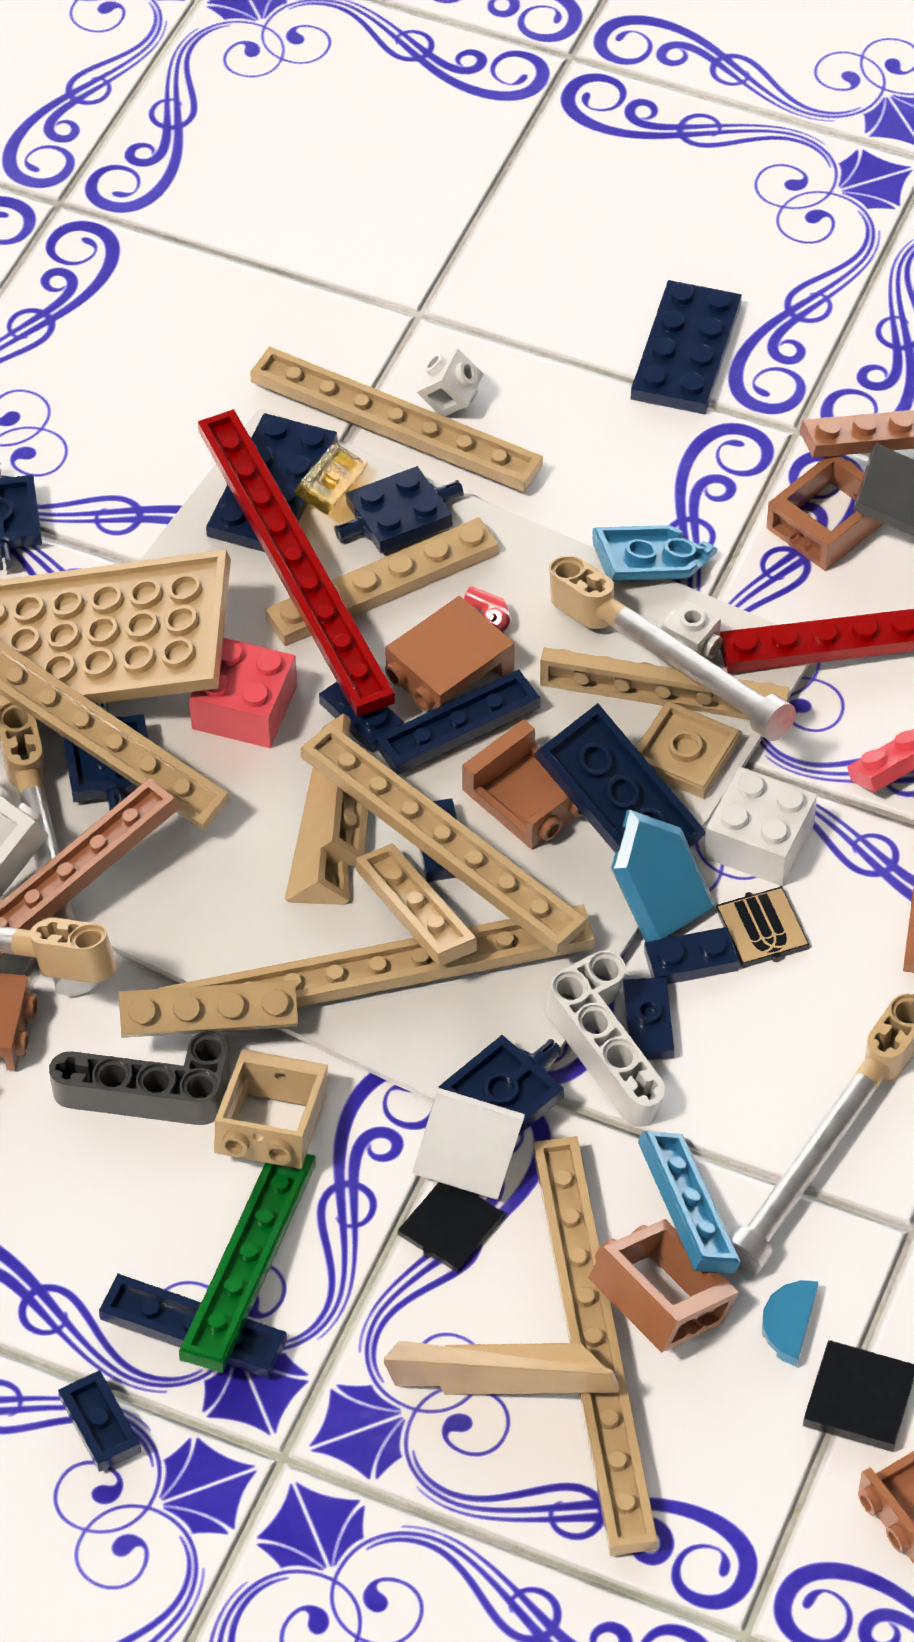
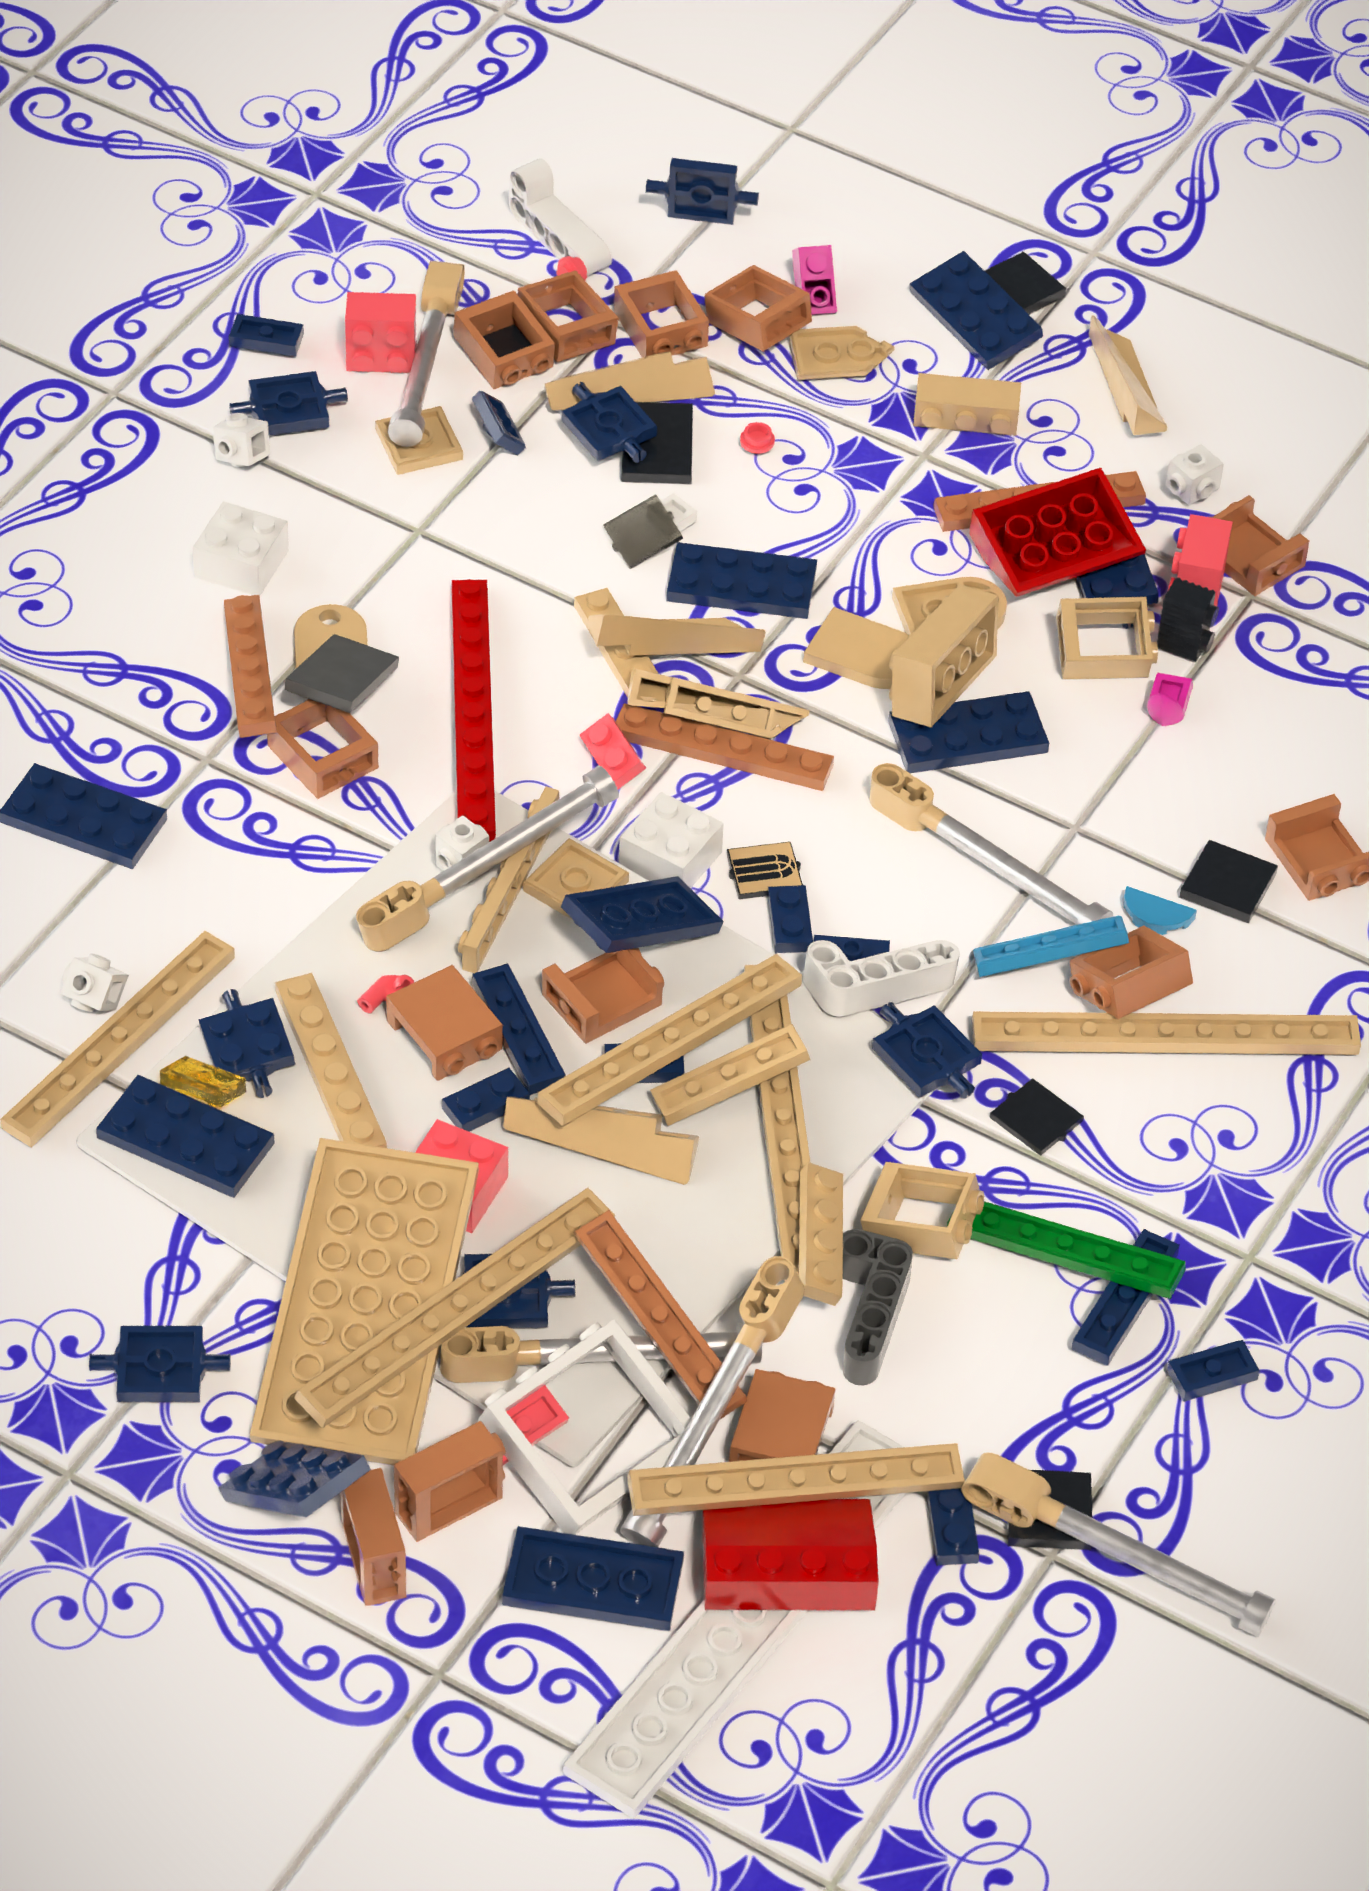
camera: 85 degrees left, 5 degrees down
(296, 564) = (309, 1111): red plate -> none
(468, 1143) = (984, 1073): white tile -> none
(500, 1368) = (1191, 1090): tan wedge -> none
(648, 553) = (342, 875): dark azure tile -> none
(659, 876) = (727, 911): dark azure tile -> none

